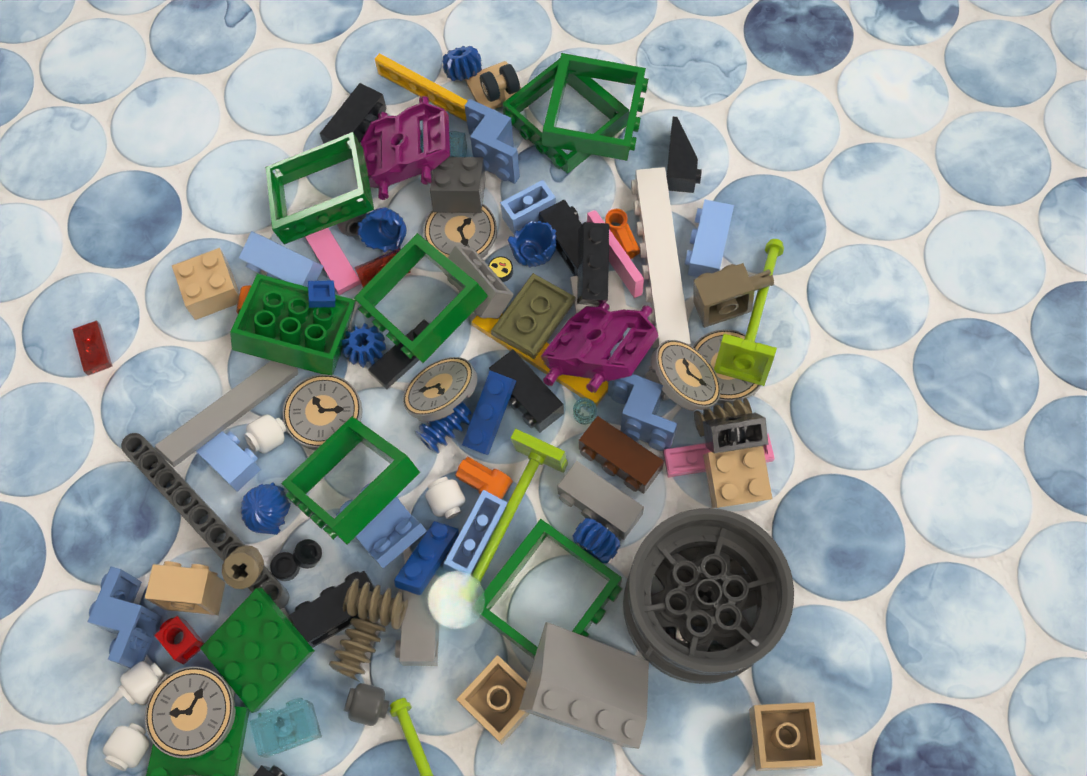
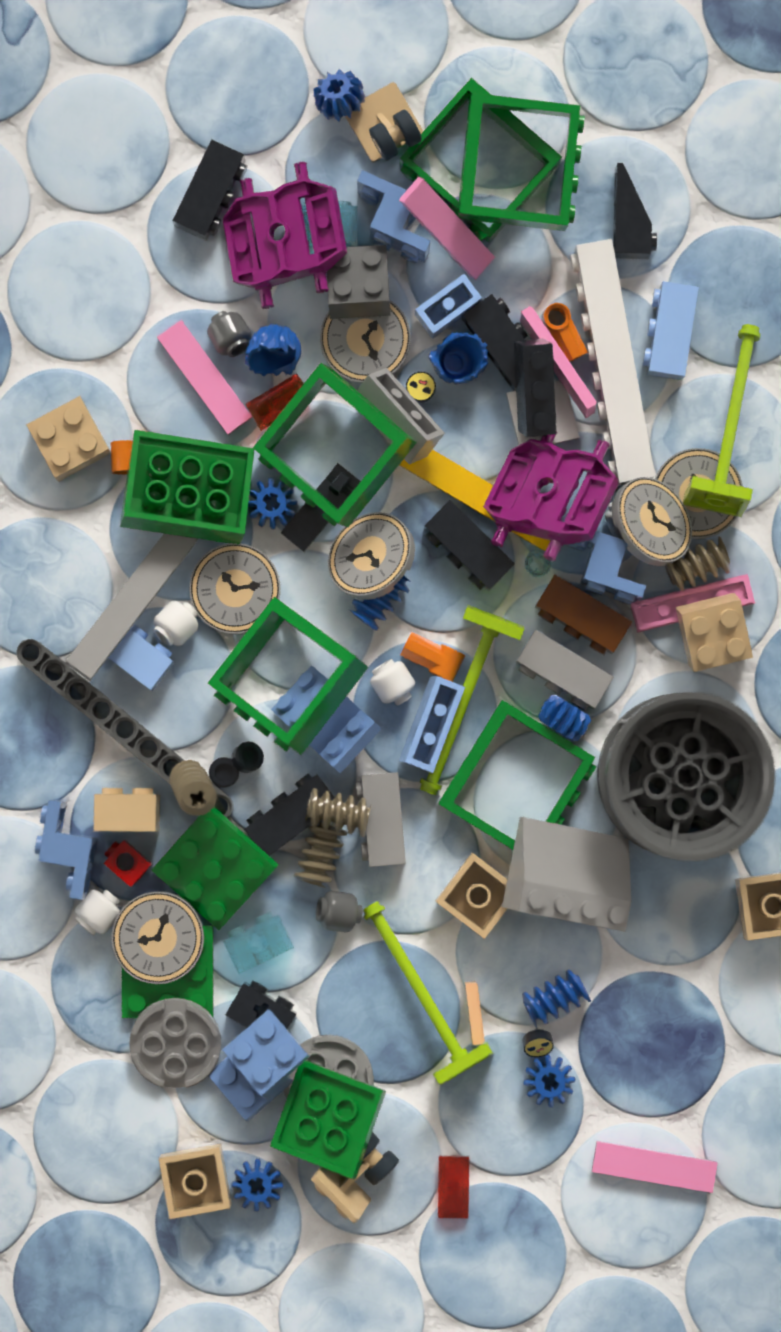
camera: 15 degrees left, 20 degrees up
(126, 747) = (95, 977): white head -> none
(265, 508) = (192, 710): blue hair -> none
(279, 261) = (153, 403): light blue brick -> none
(321, 294) = (217, 451): blue plate -> none
(326, 213) = (201, 346): green window -> none
(421, 86) = (300, 137): yellow tile -> none
(426, 558) = (383, 753): blue plate -> none
(456, 599) = (422, 798): clear light blue tile -> none
(489, 412) = (430, 578): blue plate -> none
(532, 147) = (446, 228): none -> bright pink tile
(533, 316) = (468, 450): olive tile -> none
(727, 293) = (696, 408): dark tan brick -> none
(735, 432) = (710, 589): black brick -> none

